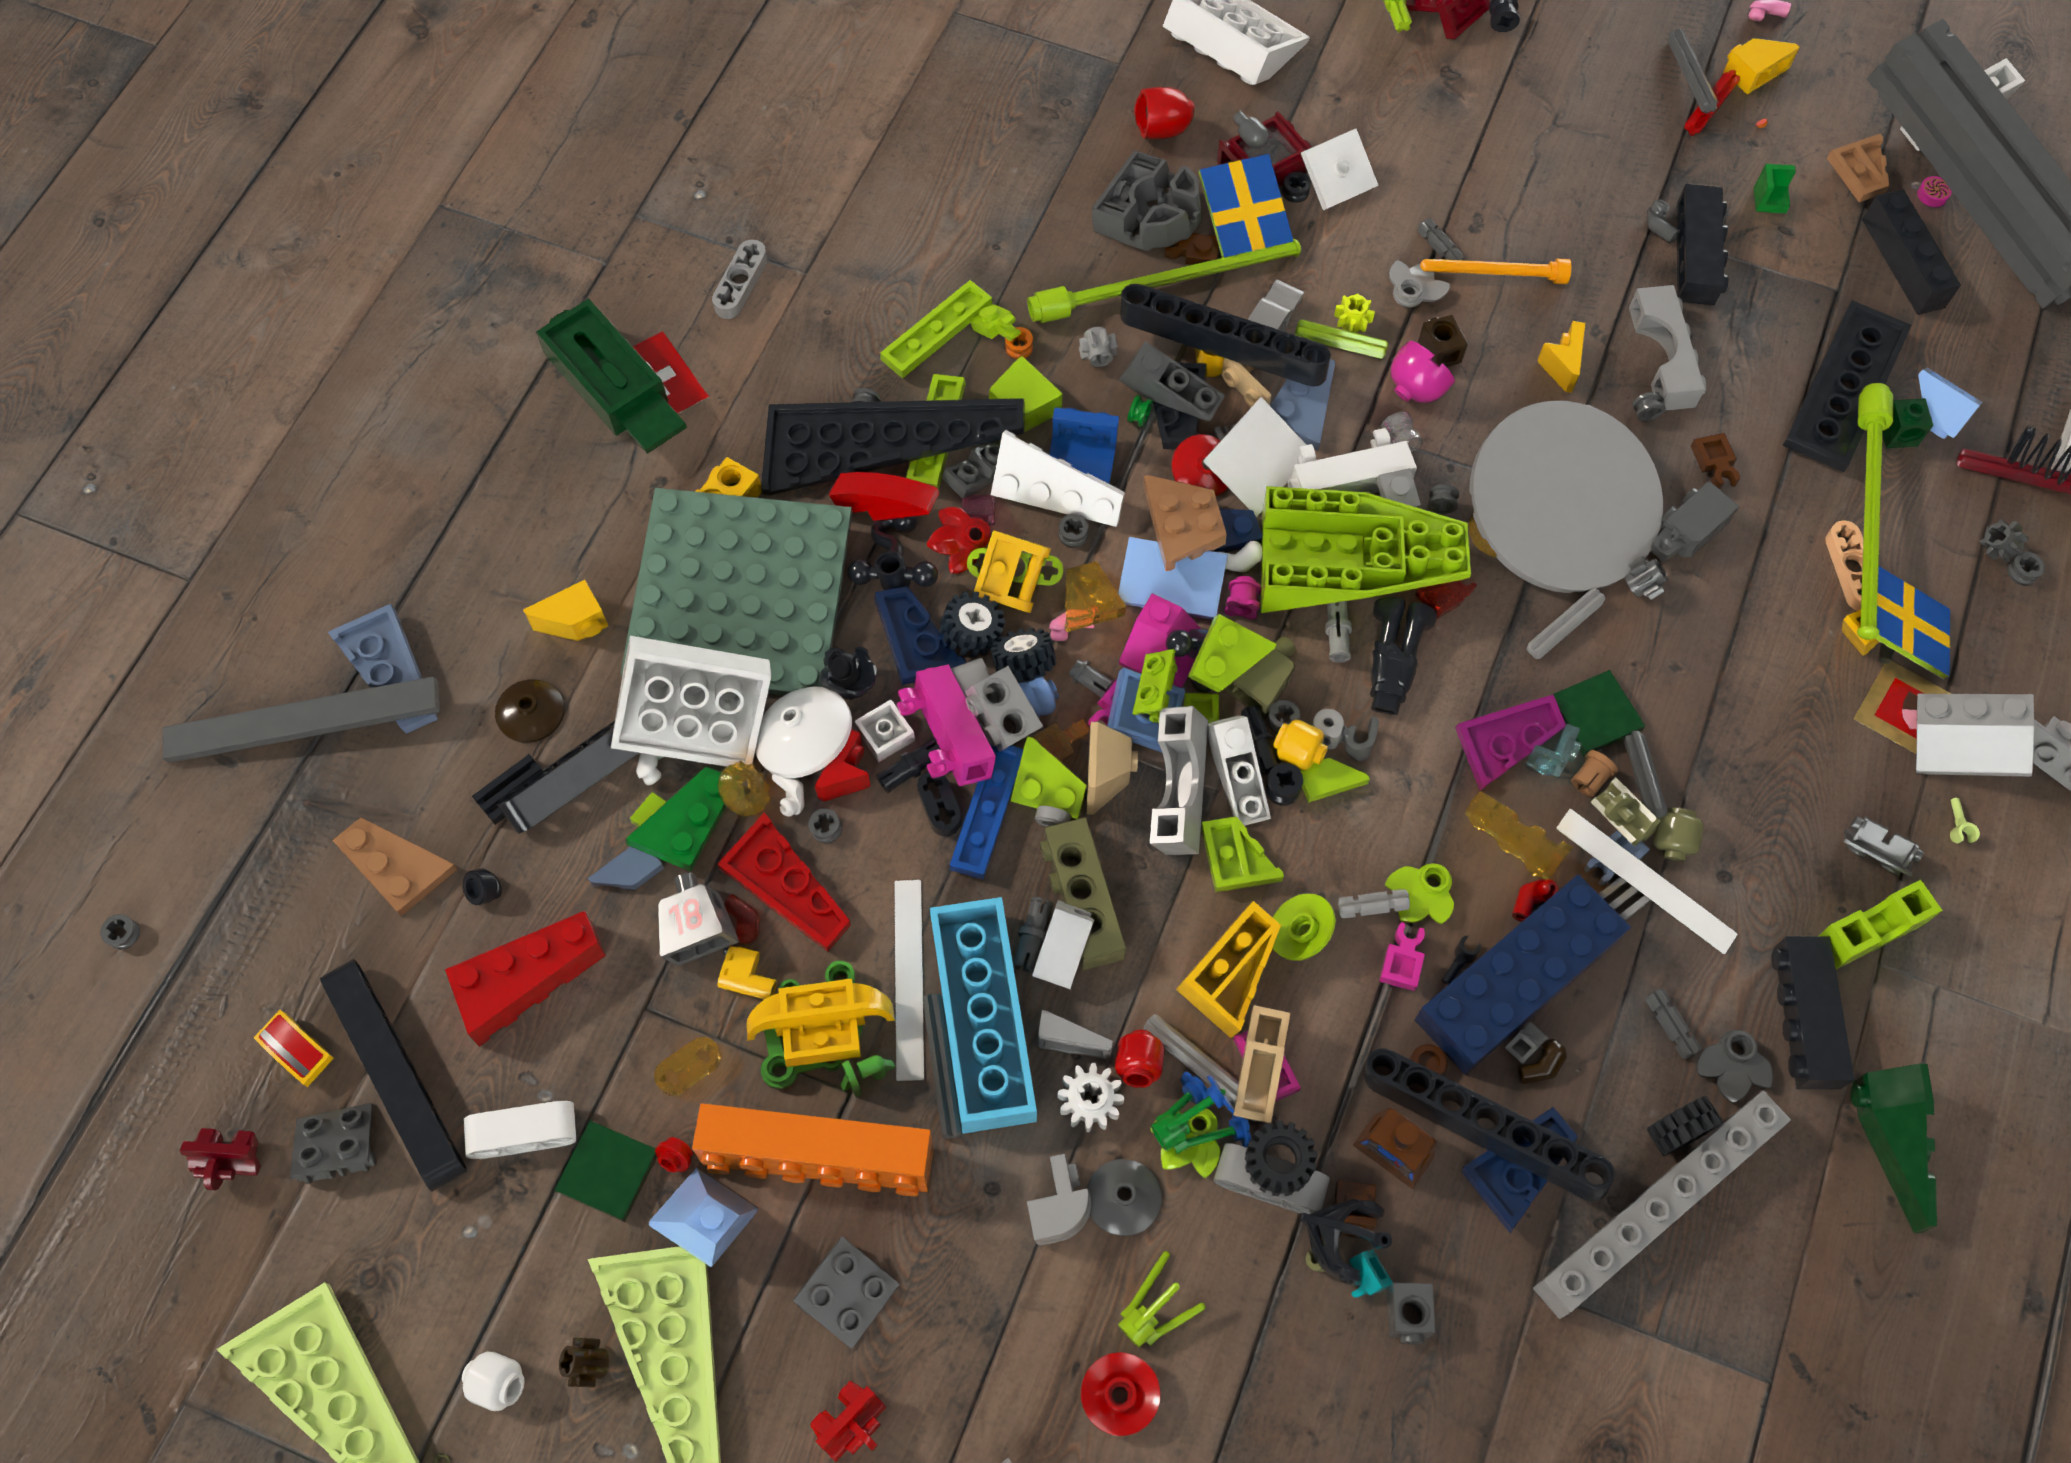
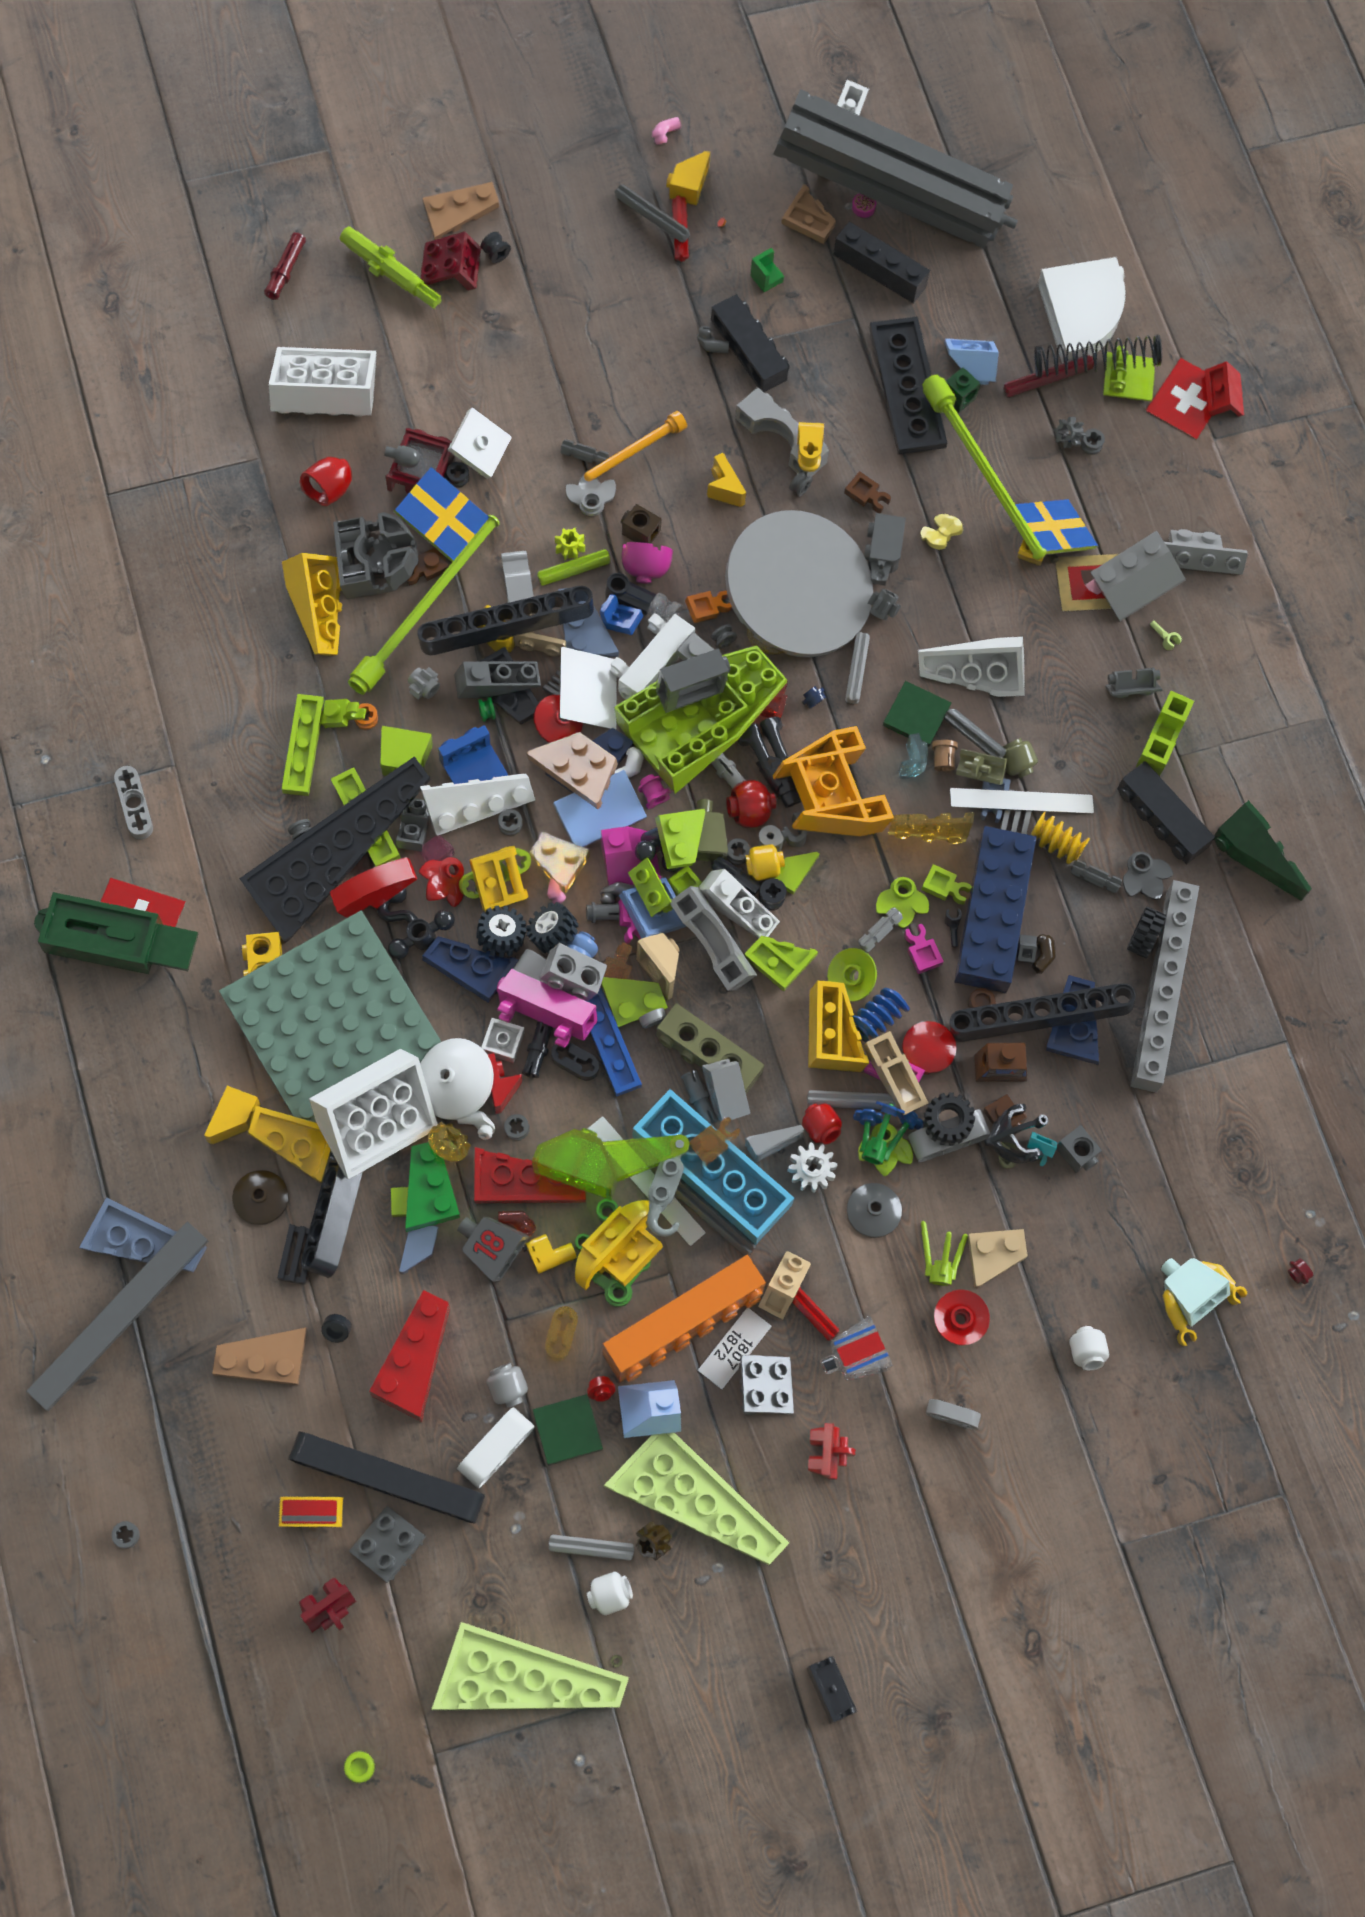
camera: 45 degrees left, 5 degrees up
(104, 1349) = (359, 1767): none -> lime tile
(521, 1315) = (591, 1547): none -> light grey axle
(586, 1074) = (507, 1385): none -> light grey head
(597, 671) = (292, 1139): none -> yellow wing
(647, 768) = (375, 1176): white arm -> none
(848, 674) = (452, 1020): black hair -> none
(857, 1223) = (738, 1341): none -> white sticker
(868, 923) = (597, 1166): none -> clear neon green slope
(873, 1066) = (666, 1261): bright green piece -> none
(957, 1197) = (784, 1285): none -> tan bracket
(962, 1243) = (815, 1315): none -> red axle
(972, 1337) = (857, 1352): none -> torso
(994, 984) = (712, 1143): none -> clear orange plate
(1061, 209) = (315, 593): none -> yellow wedge
(1064, 1214) = (852, 1242): light grey brick -> none
(1113, 664) = (613, 891): none -> flat silver arm
(1220, 1353) = (995, 1253): none -> tan wing
(1298, 988) = (878, 1012): none -> blue piece
(1328, 1067) = (929, 1046): none -> red dish
(1336, 678) = (751, 803): none -> red plant
(1347, 411) = (620, 617): none -> blue bracket
(1365, 504) = (692, 680): none -> dark grey window
(1375, 397) = (631, 595): none -> black piece
(1429, 718) = (829, 789): none -> light orange wedge
(1447, 458) = (705, 606): none -> orange plate
(1484, 904) = (941, 884): none -> lime plate
(1492, 619) = (813, 697): none -> dark blue plate
(1508, 736) = (879, 765): magenta wing -> none
(1531, 895) = (964, 856): red arm -> none
(1656, 951) = (1059, 839): none -> yellow piece
(1686, 369) = (810, 445): none -> yellow piece
(1715, 714) = (982, 665): none -> white wedge
(1783, 549) = (948, 527): none -> light yellow piece
(1836, 545) = (977, 503): light nougat beam -> none

